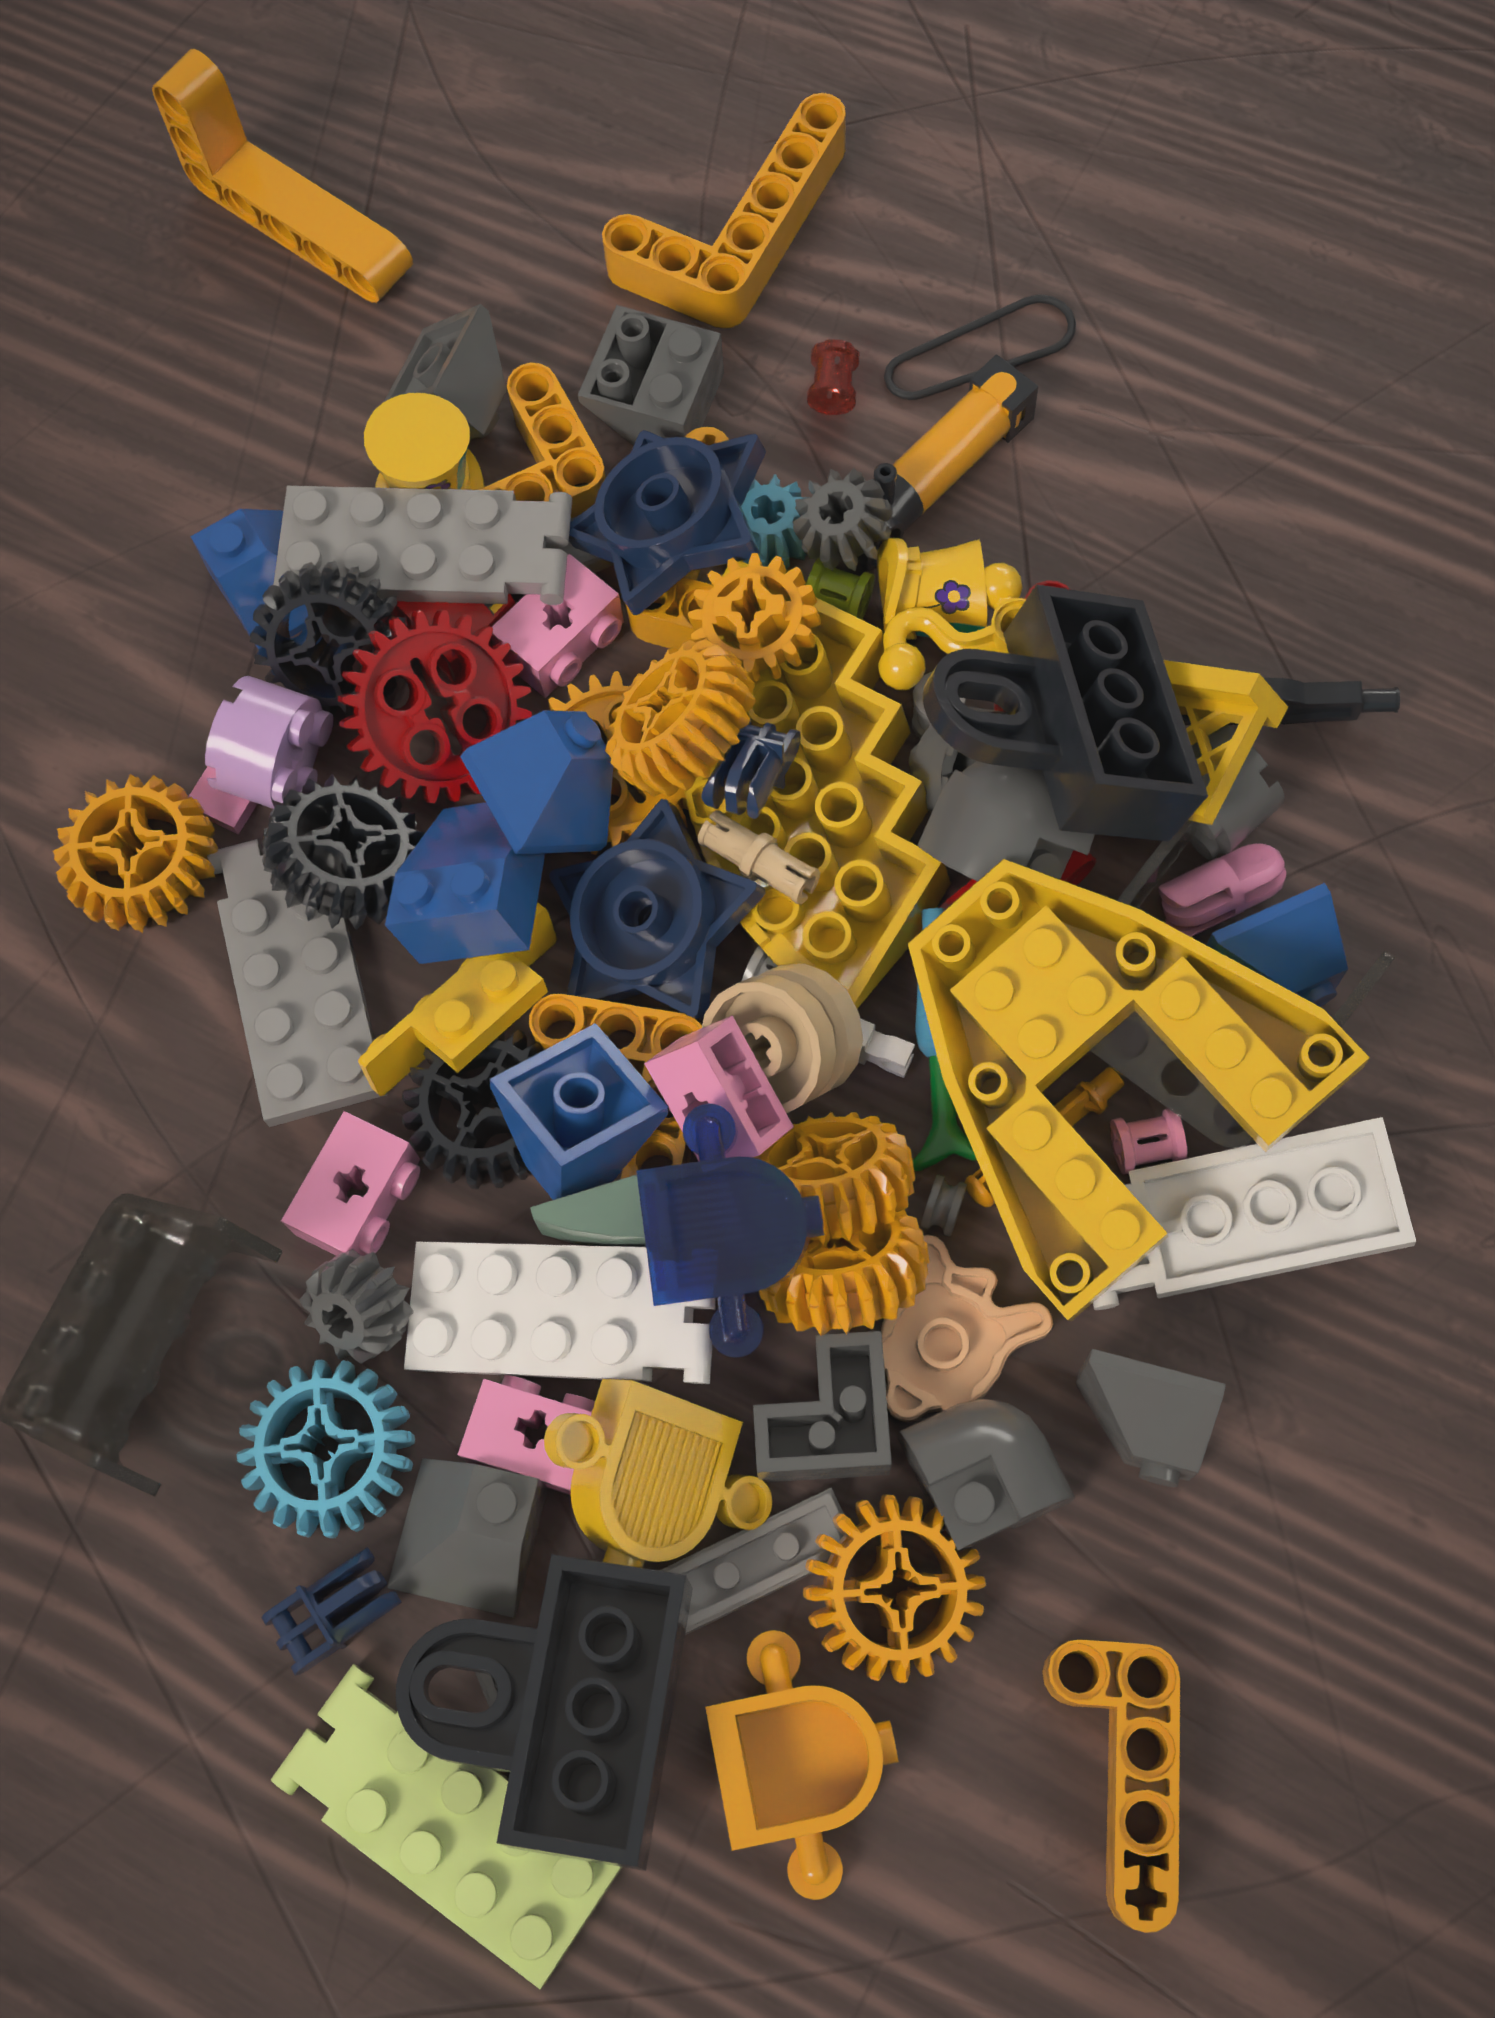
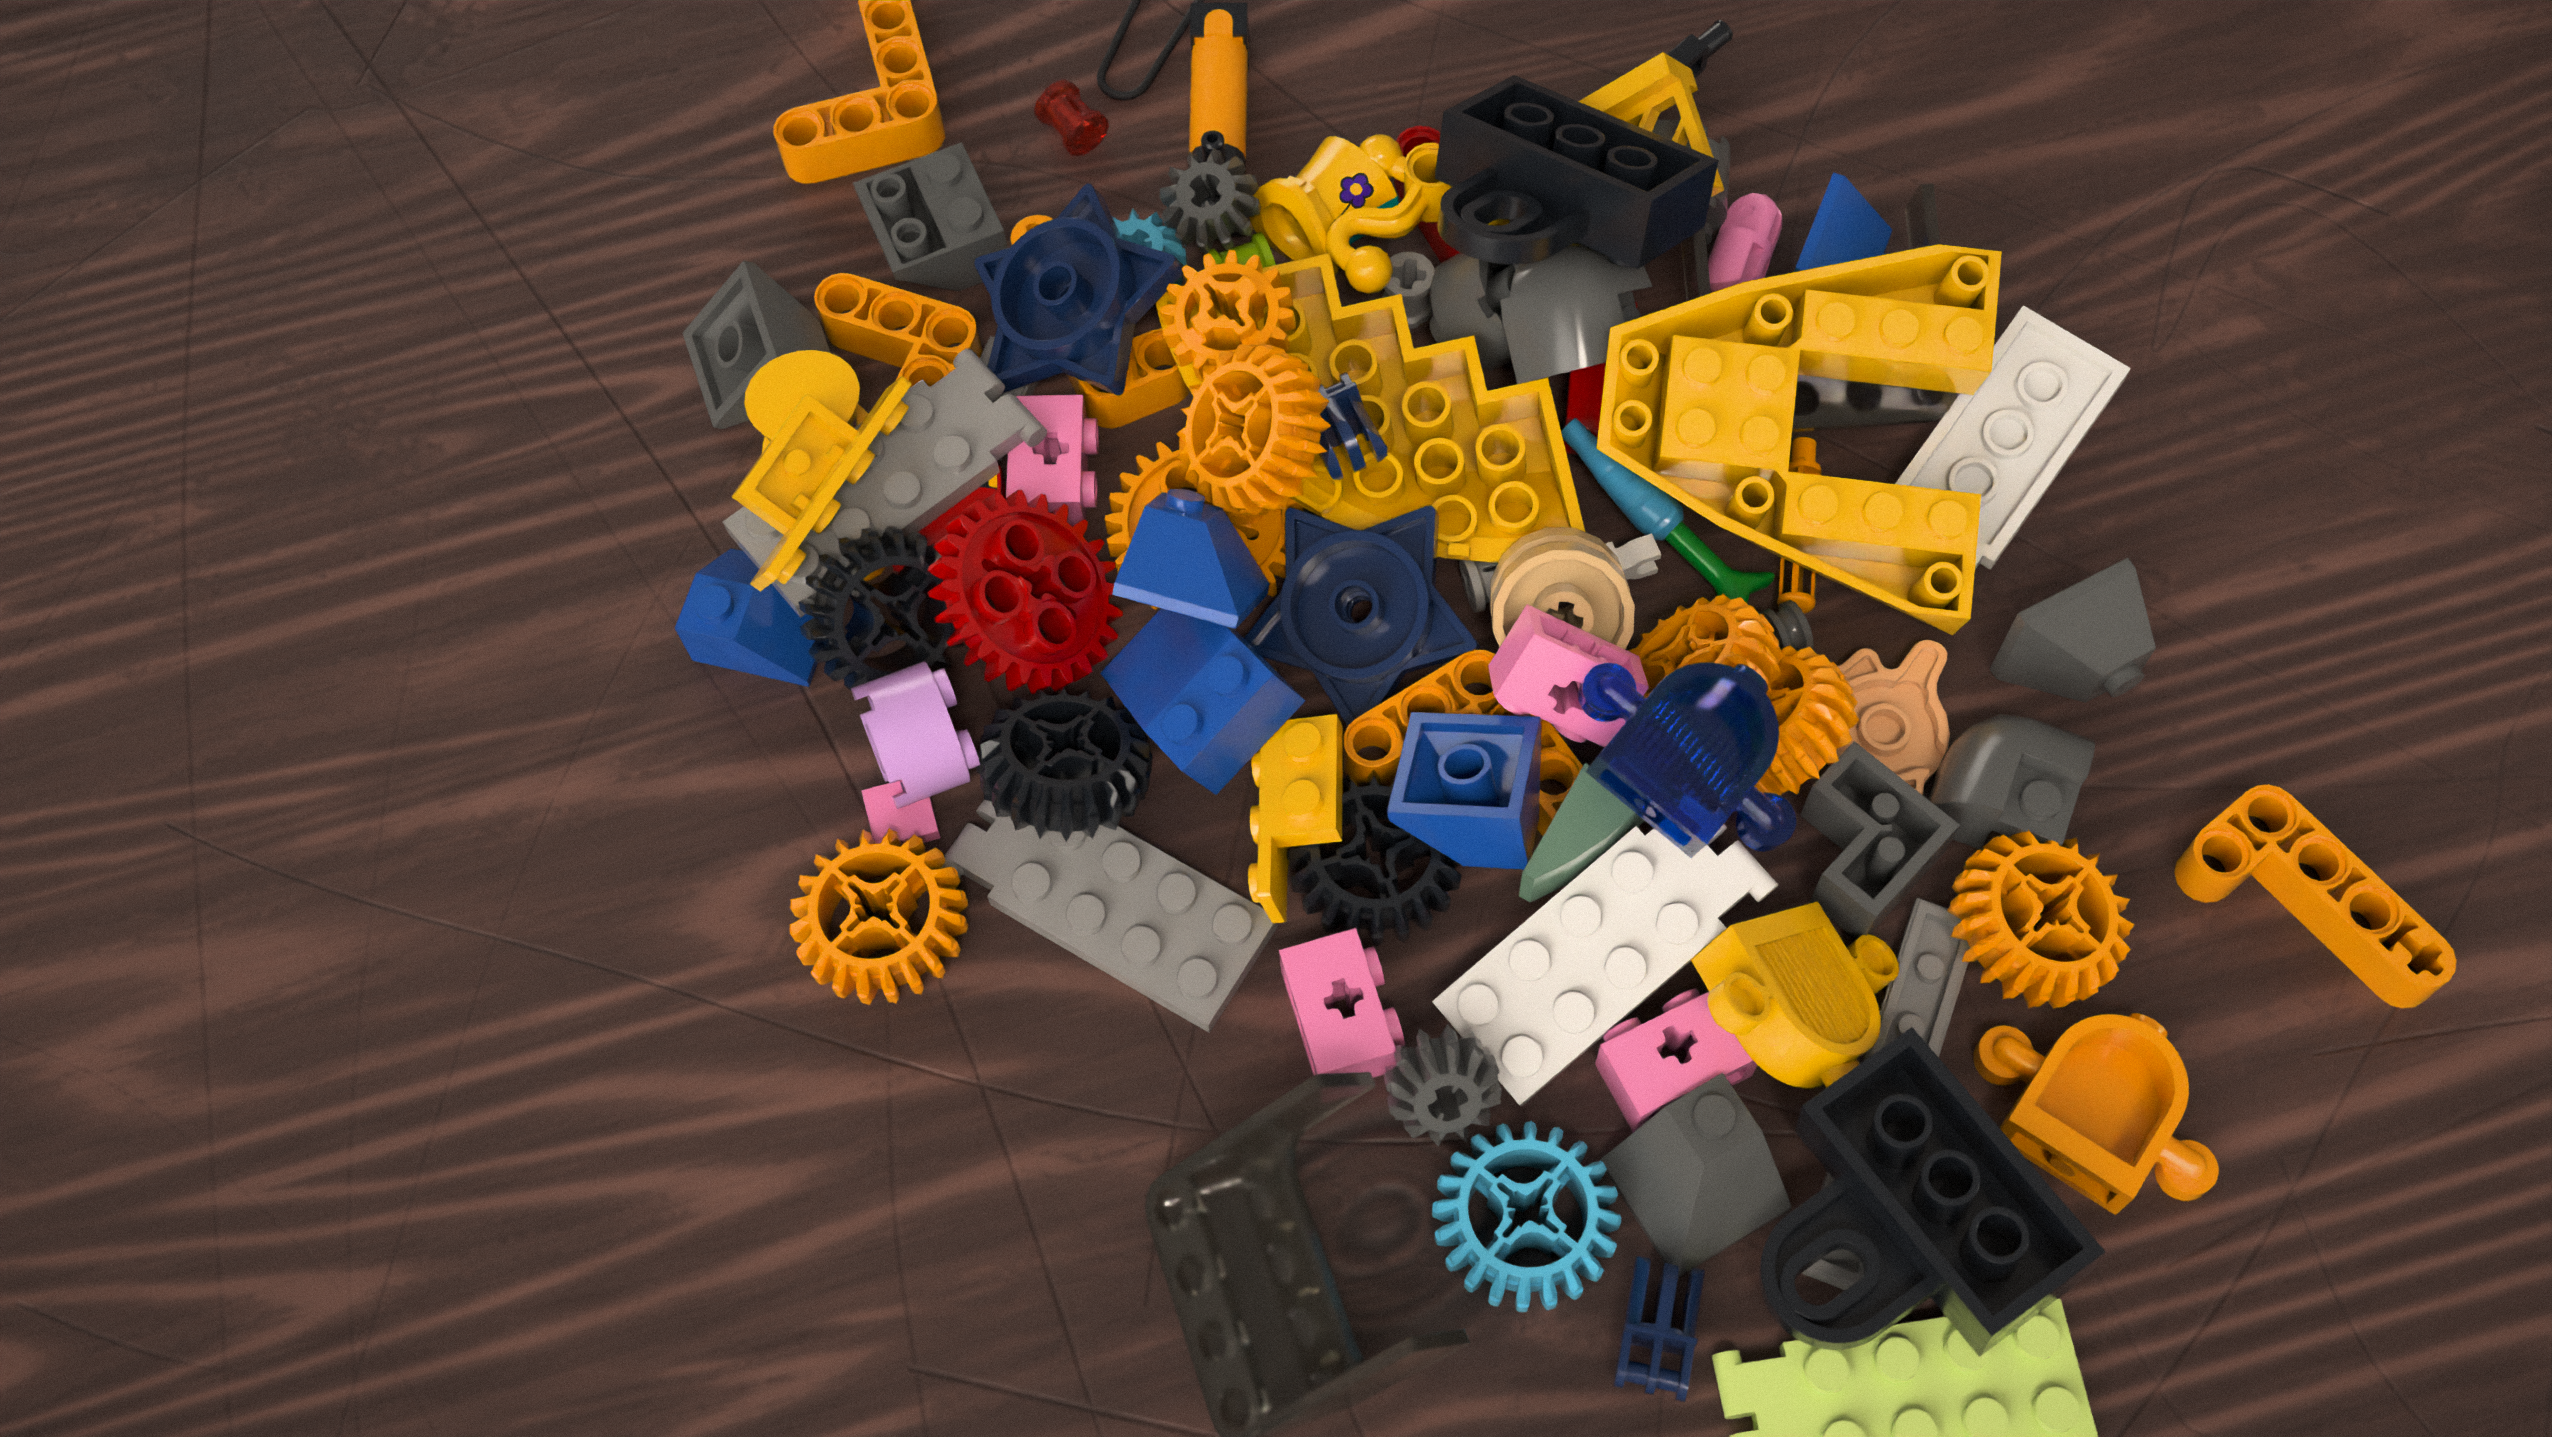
camera: 45 degrees left, 5 degrees down
(266, 191) = (446, 323): light orange beam -> none
(354, 490) = (805, 468): none -> yellow bracket
(759, 857) = (1408, 488): tan pin -> none
(1131, 1154) = (1873, 451): bright pink bush -> none

